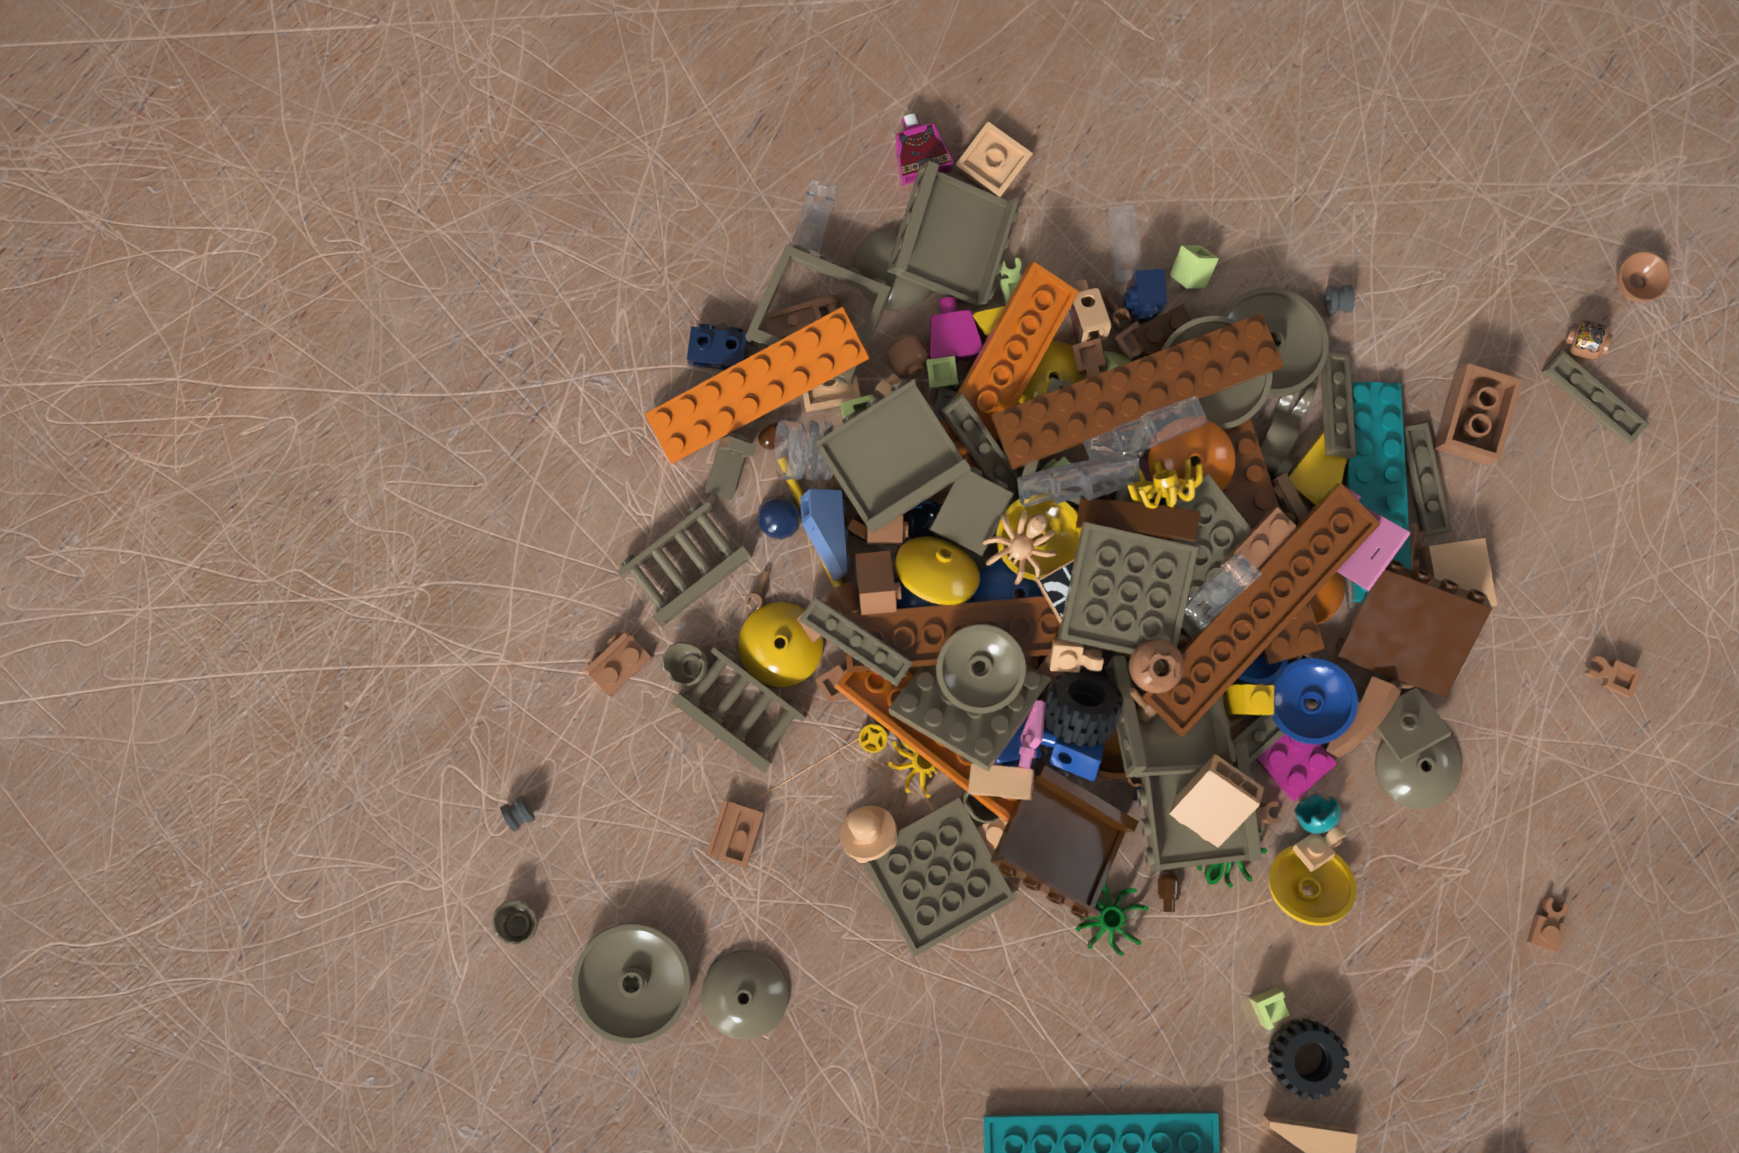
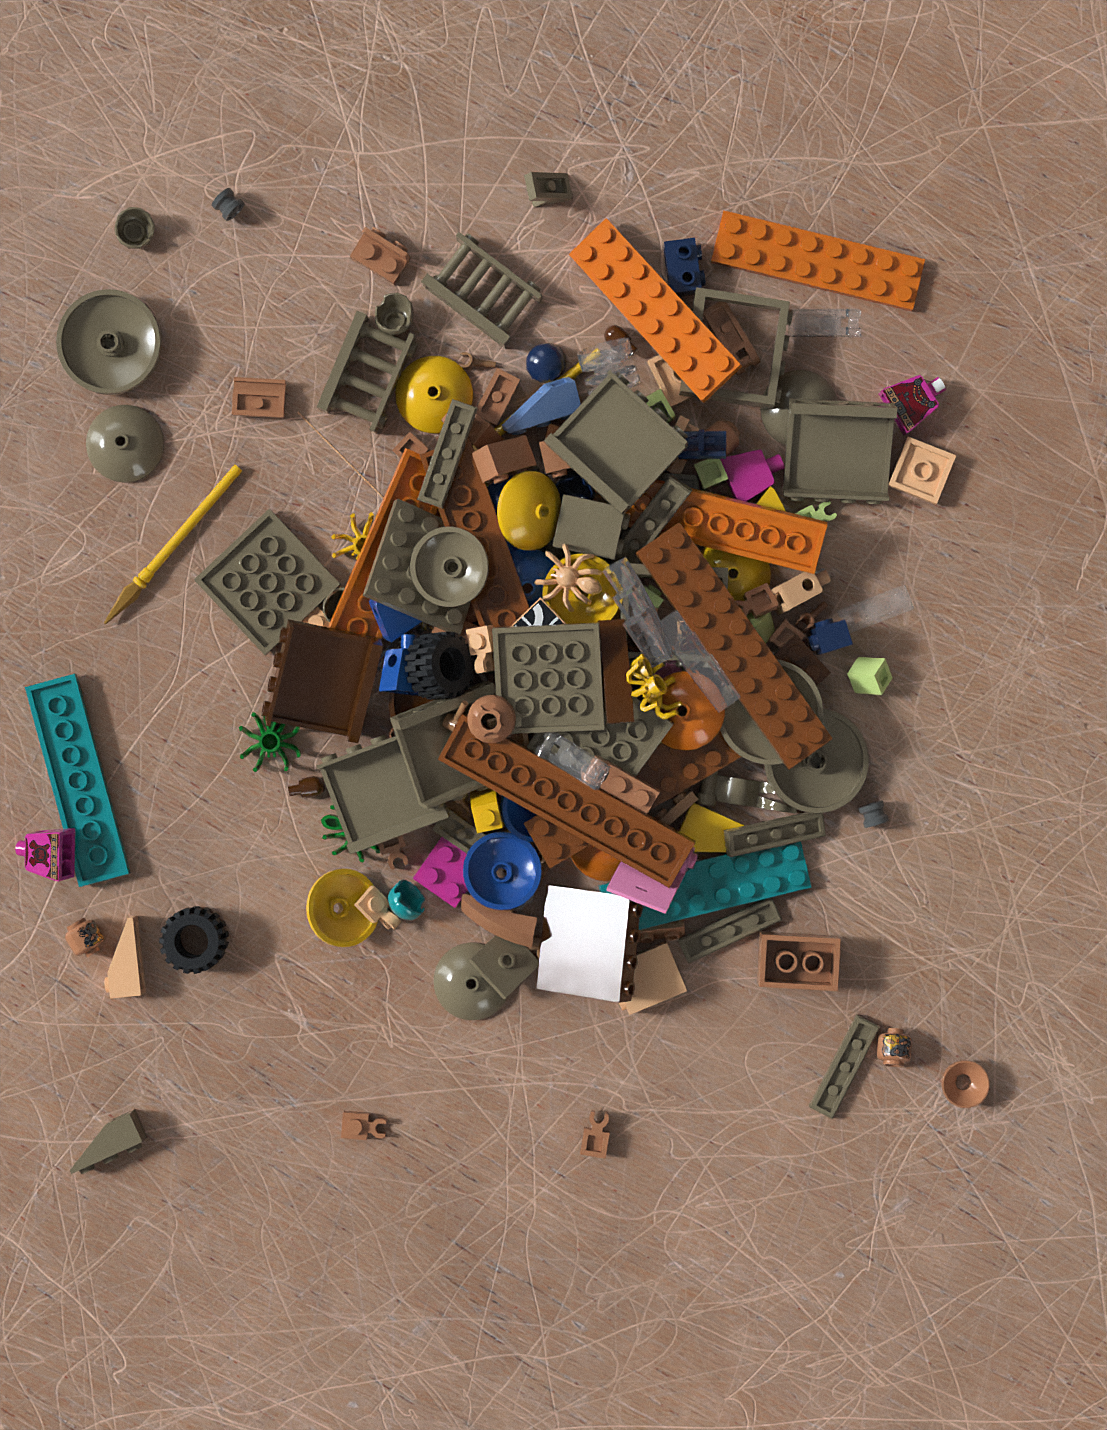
camera: 85 degrees right, 5 degrees up
(595, 467) = (547, 188): none -> dark tan slope
(728, 465) = (578, 305): dark tan bracket -> none
(747, 211) = (817, 261): none -> orange plate
(801, 576) = (497, 396): none -> nougat plate
(868, 833) = (288, 512): light nougat plate -> none
(875, 741) = (371, 491): yellow wheel -> none
(909, 1029) = (132, 591): none -> yellow piece
(916, 365) = (705, 445): none -> dark blue hips
(1002, 782) = (358, 613): light nougat slope -> none
(1032, 734) = (405, 628): bright pink piece -> none
(1216, 800) = (389, 801): light nougat brick -> none
(1270, 1007) = (229, 898): yellowish green panel -> none

